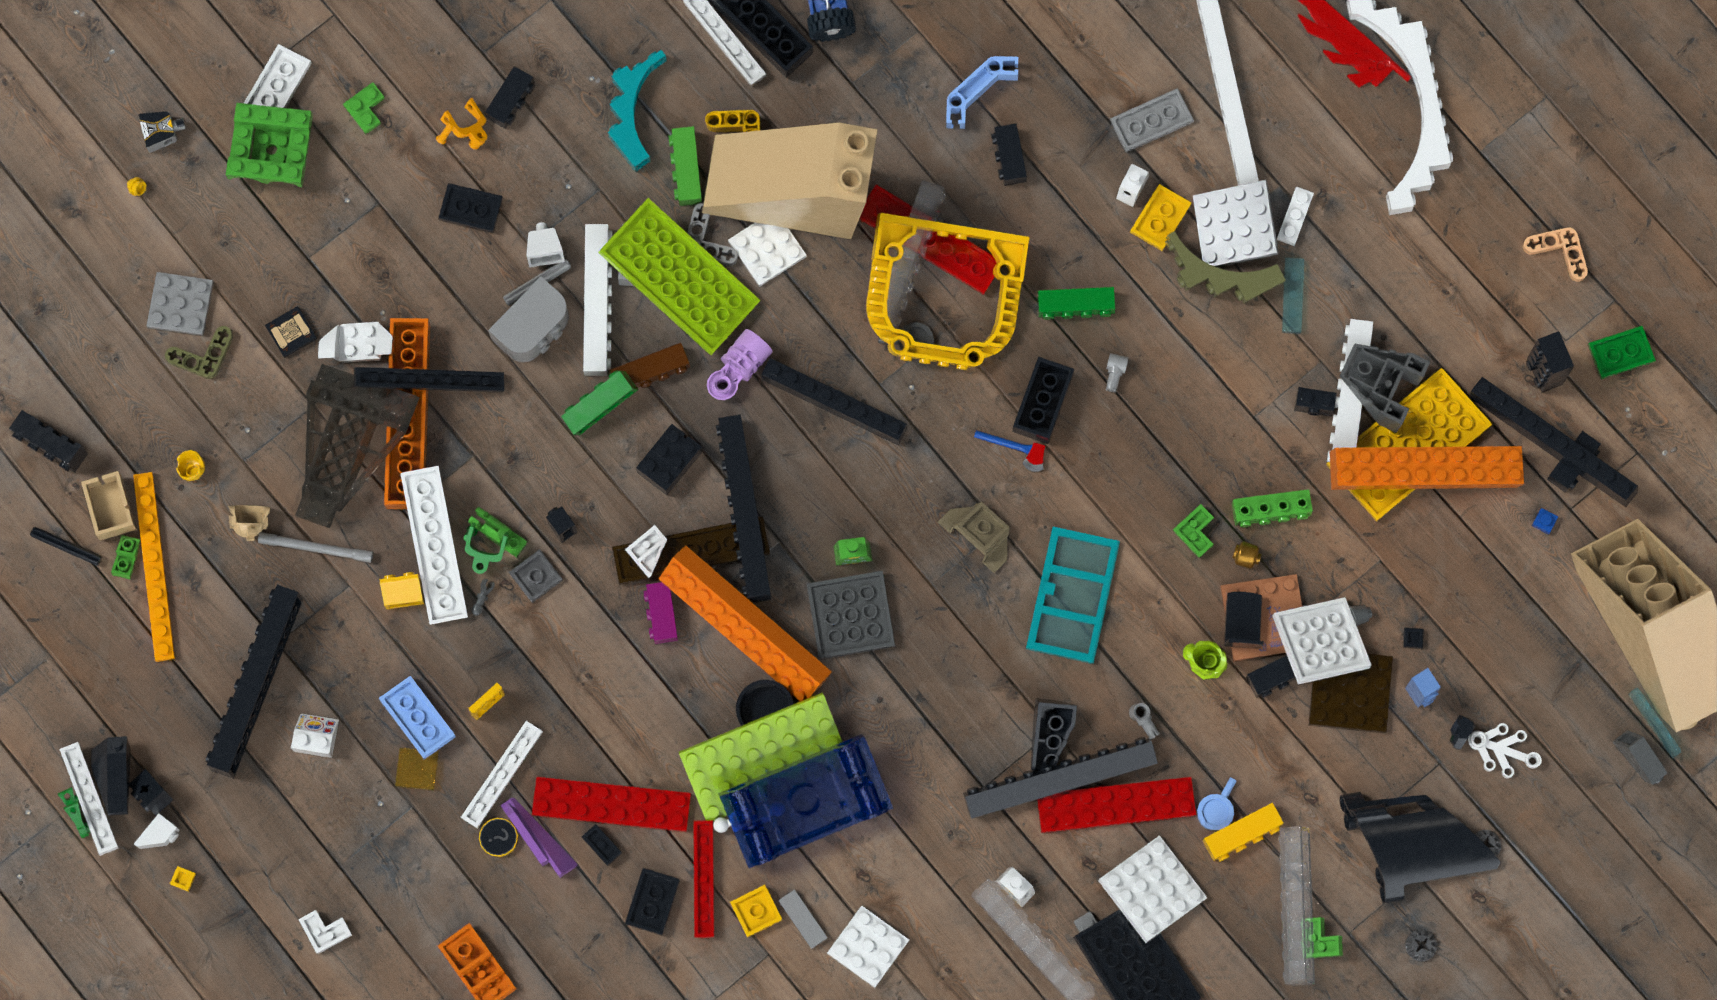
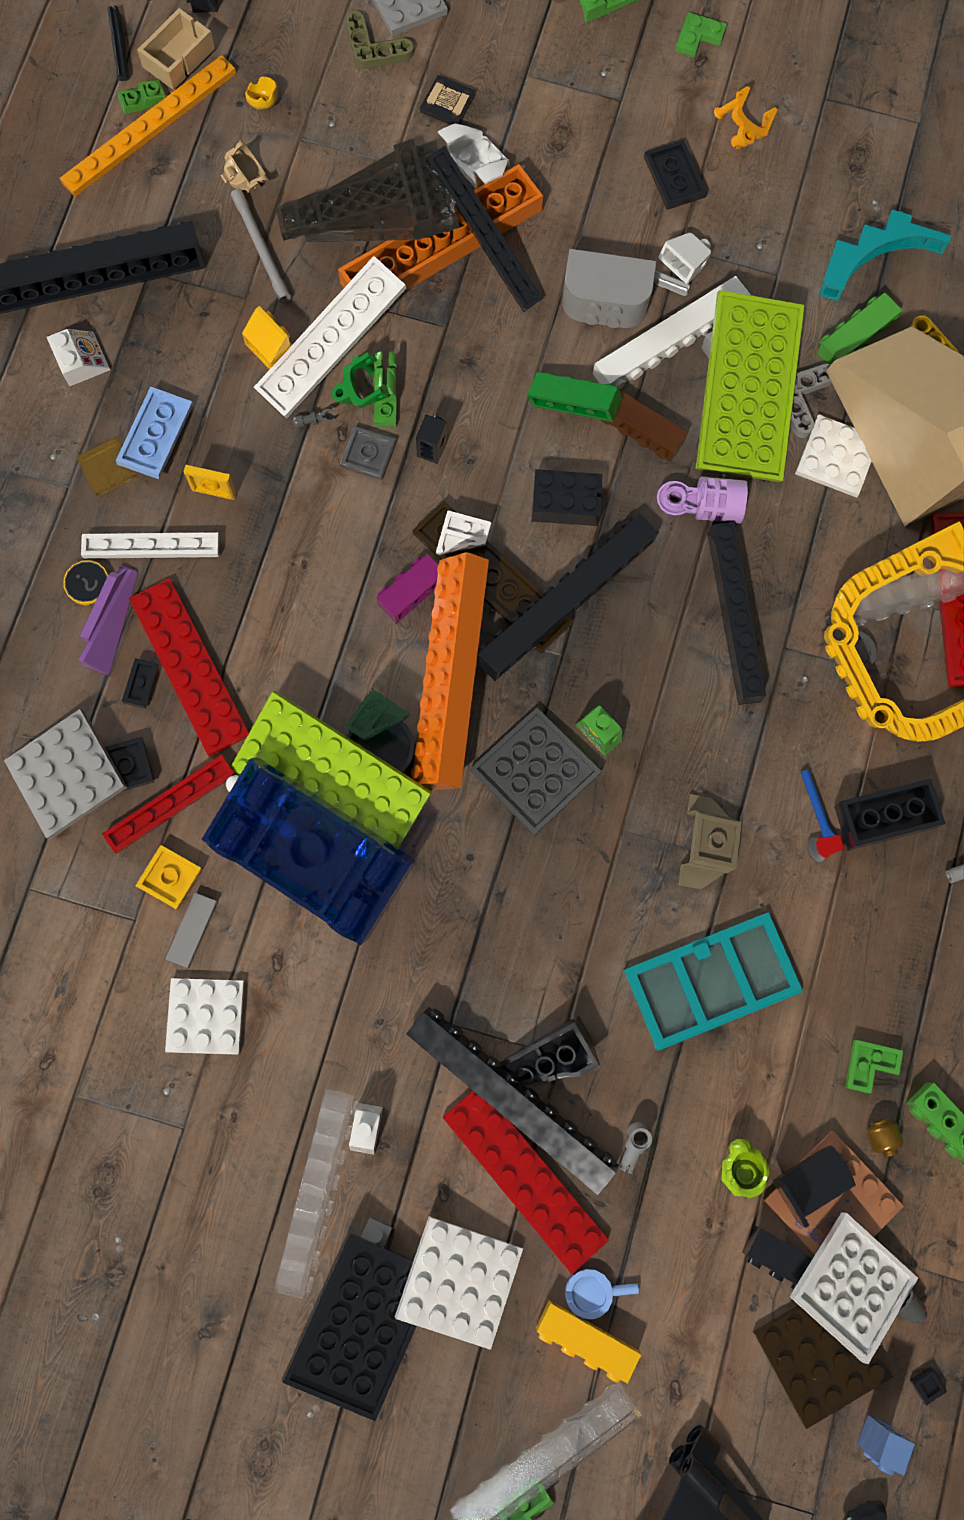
camera: 50 degrees right, 0 degrees up
(510, 98) = (802, 141): black brick -> none
(634, 935) = (65, 774): none -> light grey plate
(742, 696) = (375, 716): none -> clear green wing

